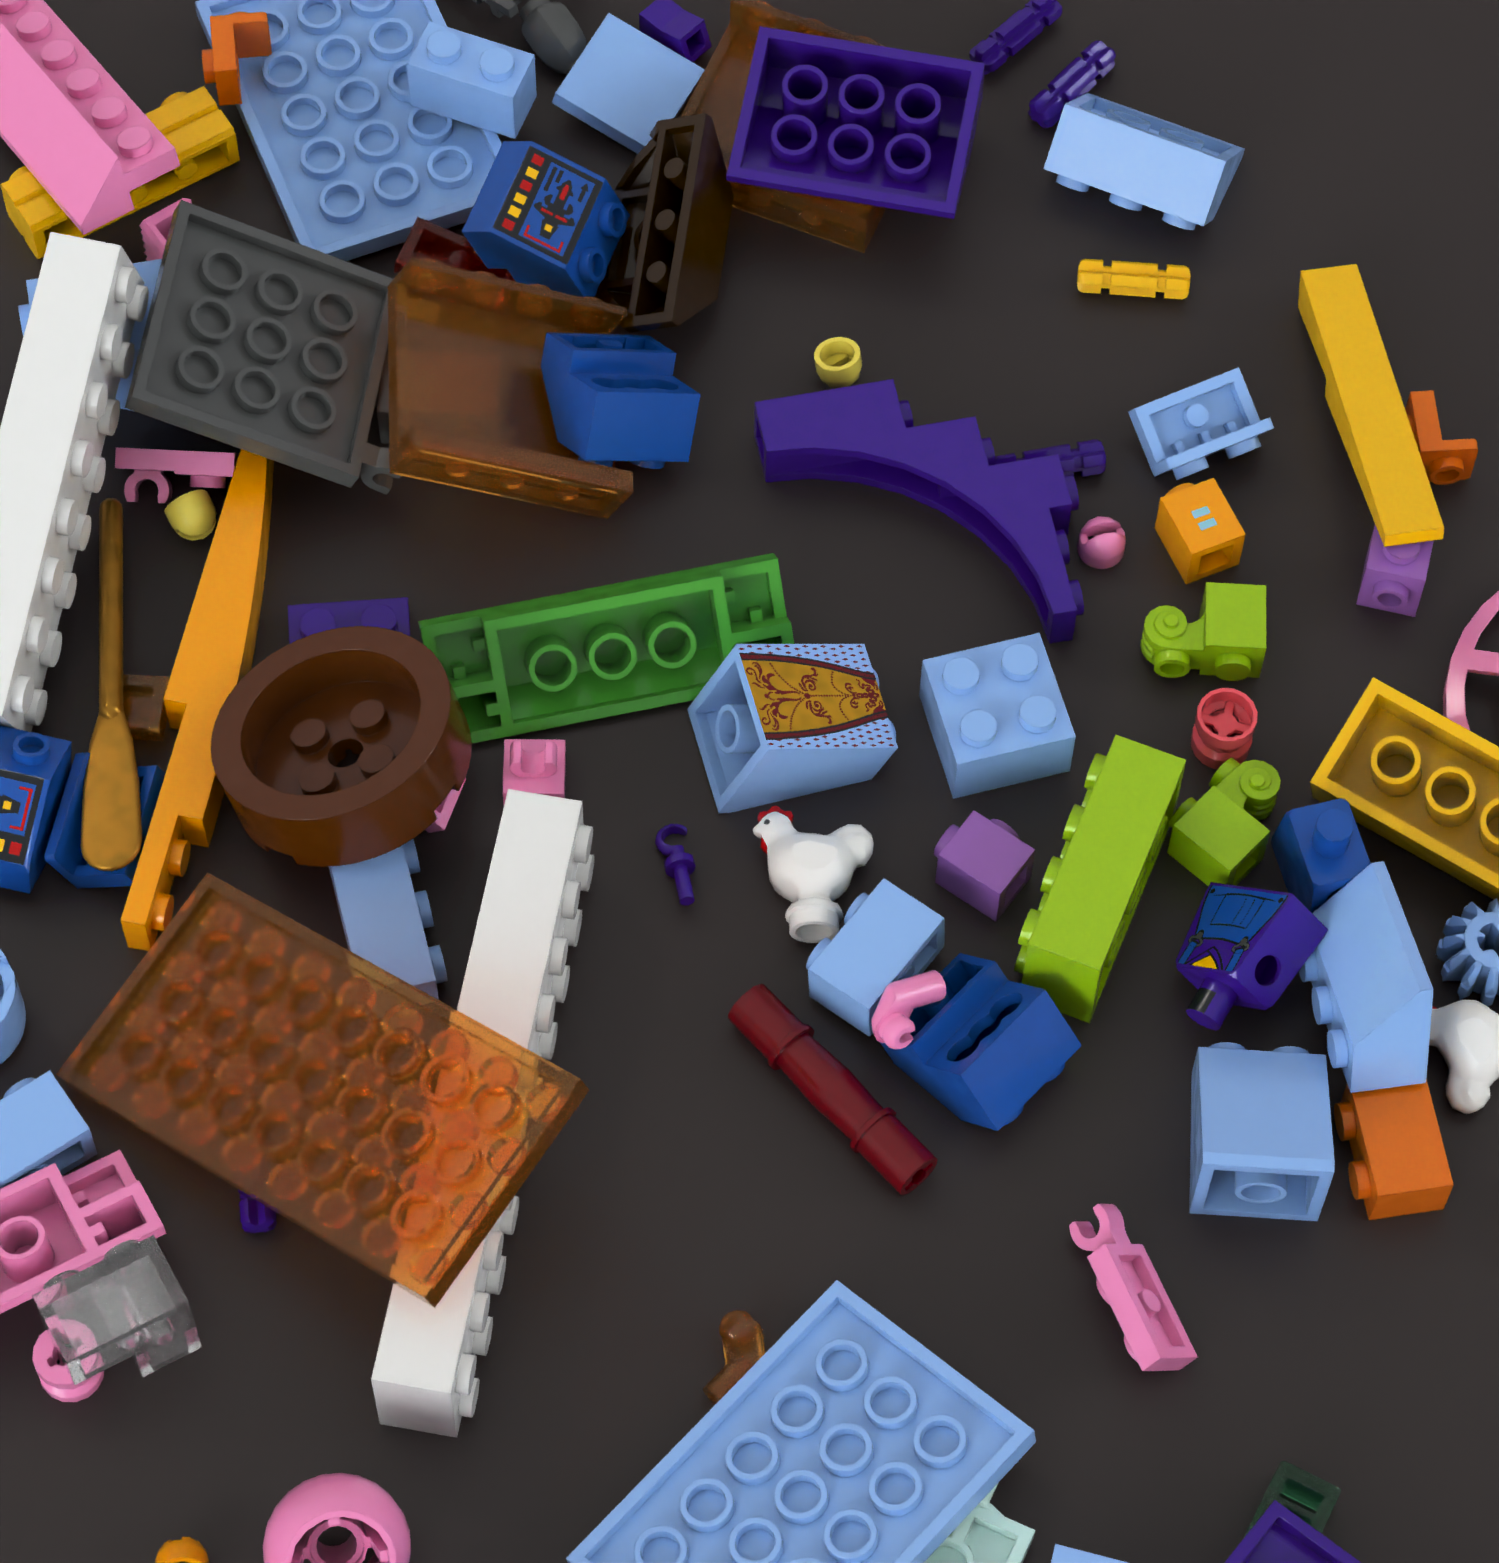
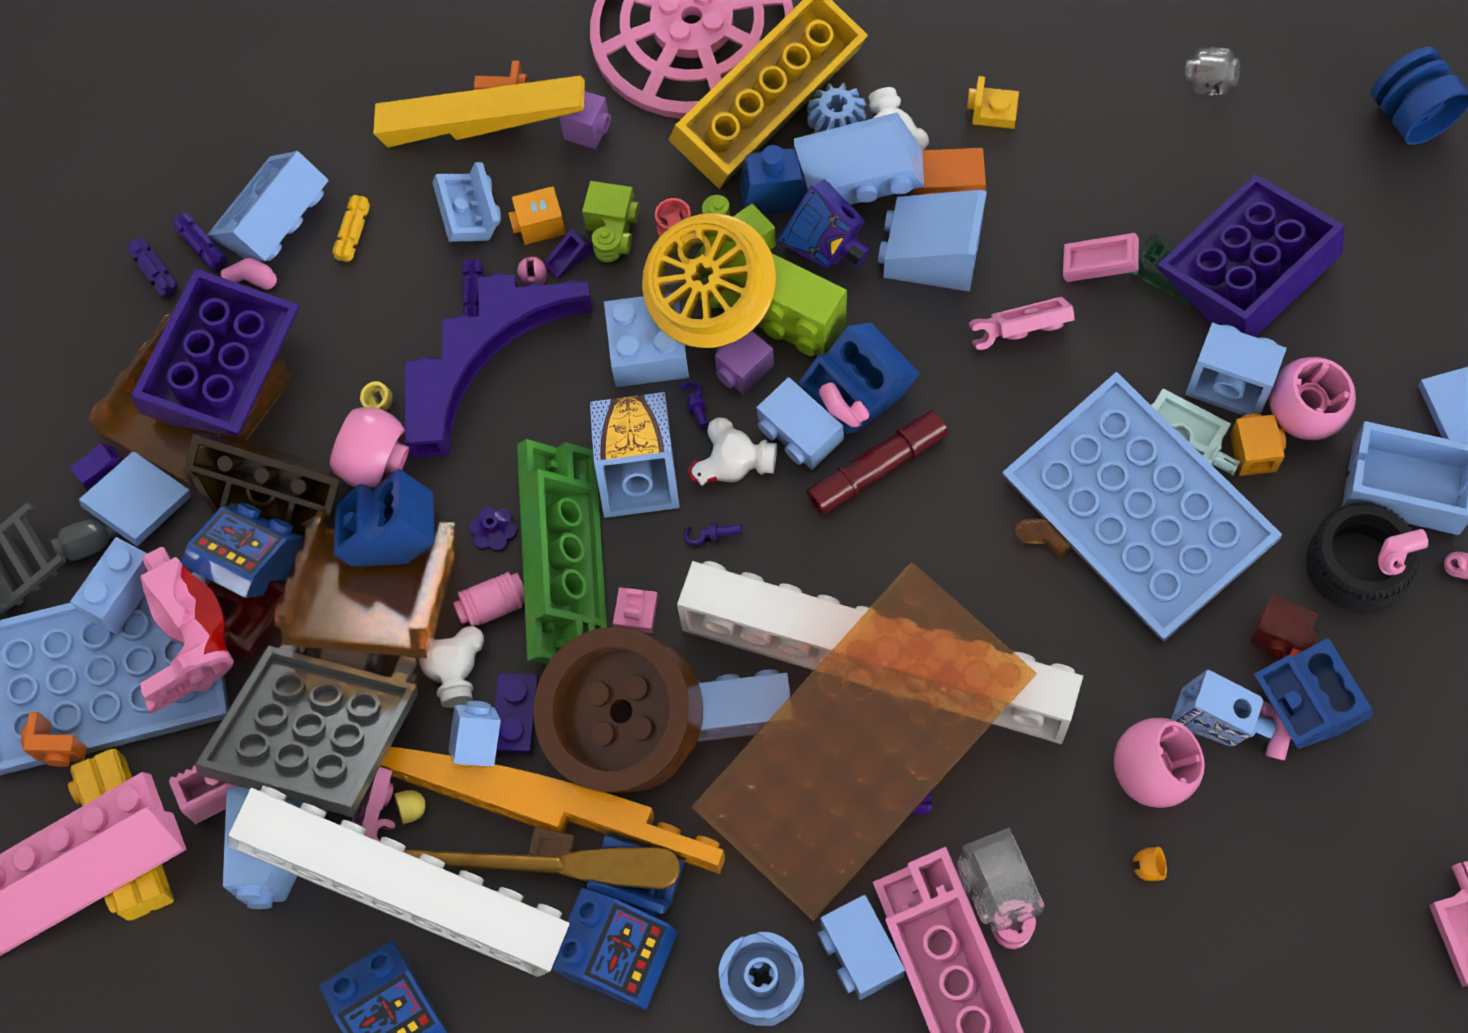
camera: 75 degrees left, 5 degrees up
(291, 566) = (474, 734): none -> light blue brick
(414, 530) = (451, 662): none -> white animal
(436, 161) = (191, 616): none -> bright pink hips
(519, 560) = (490, 599): none -> bright pink head
(646, 554) = (494, 535): none -> dark purple plant
(737, 354) = (368, 447): none -> bright pink wheel
(900, 810) = (696, 403): none -> dark purple hand
(1026, 161) = (251, 271): none -> bright pink arm
(1078, 753) = (736, 320): none -> yellow piece
(1144, 587) = (568, 253): none -> dark purple piece
(1279, 1410) = (1101, 257): none -> bright pink tile

